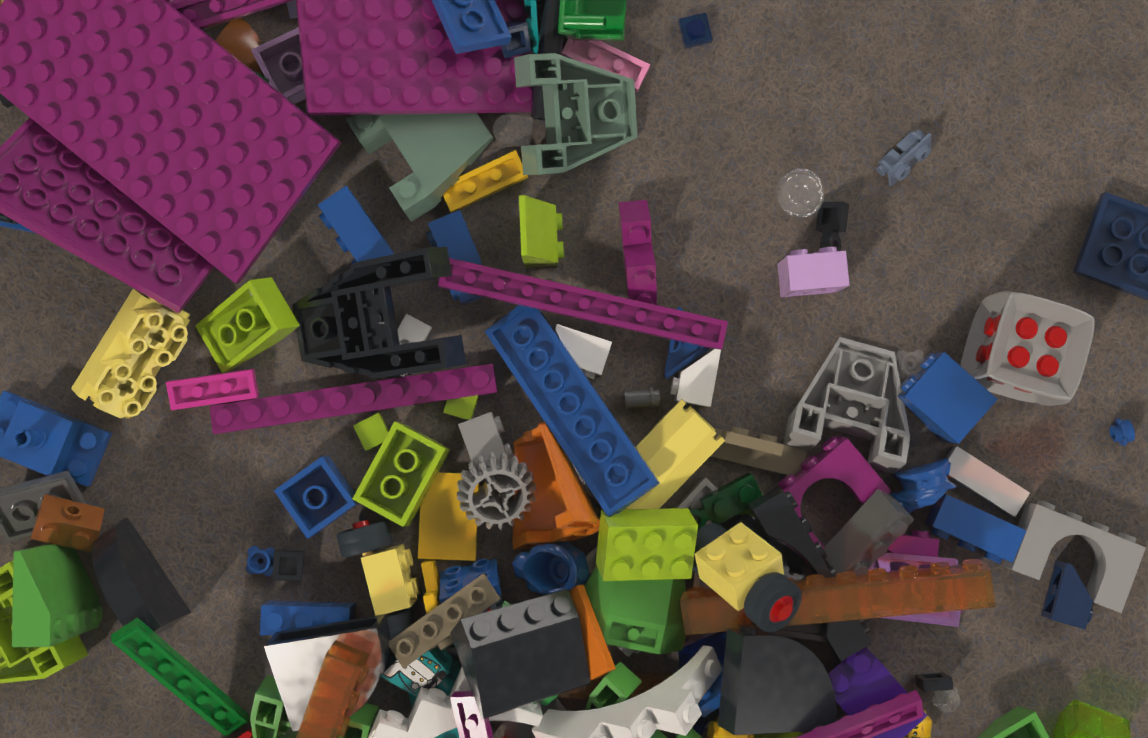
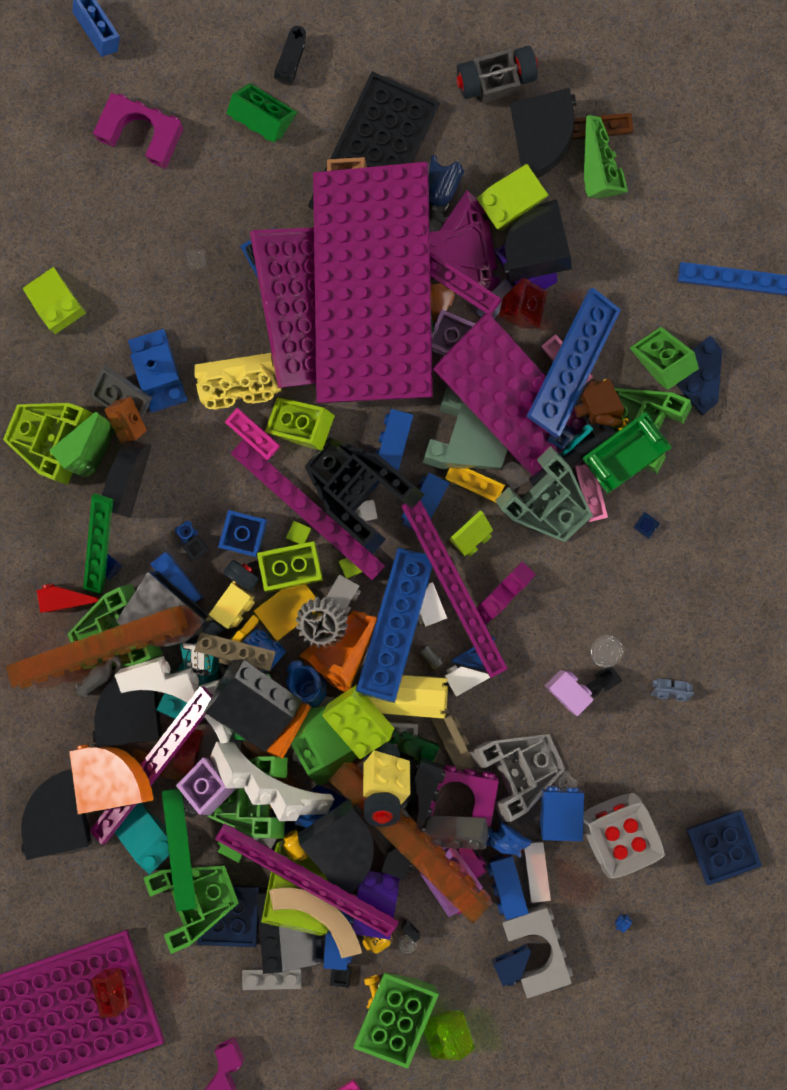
camera: 50 degrees right, 0 degrees up
(228, 681) = (112, 567): none -> clear blue plate

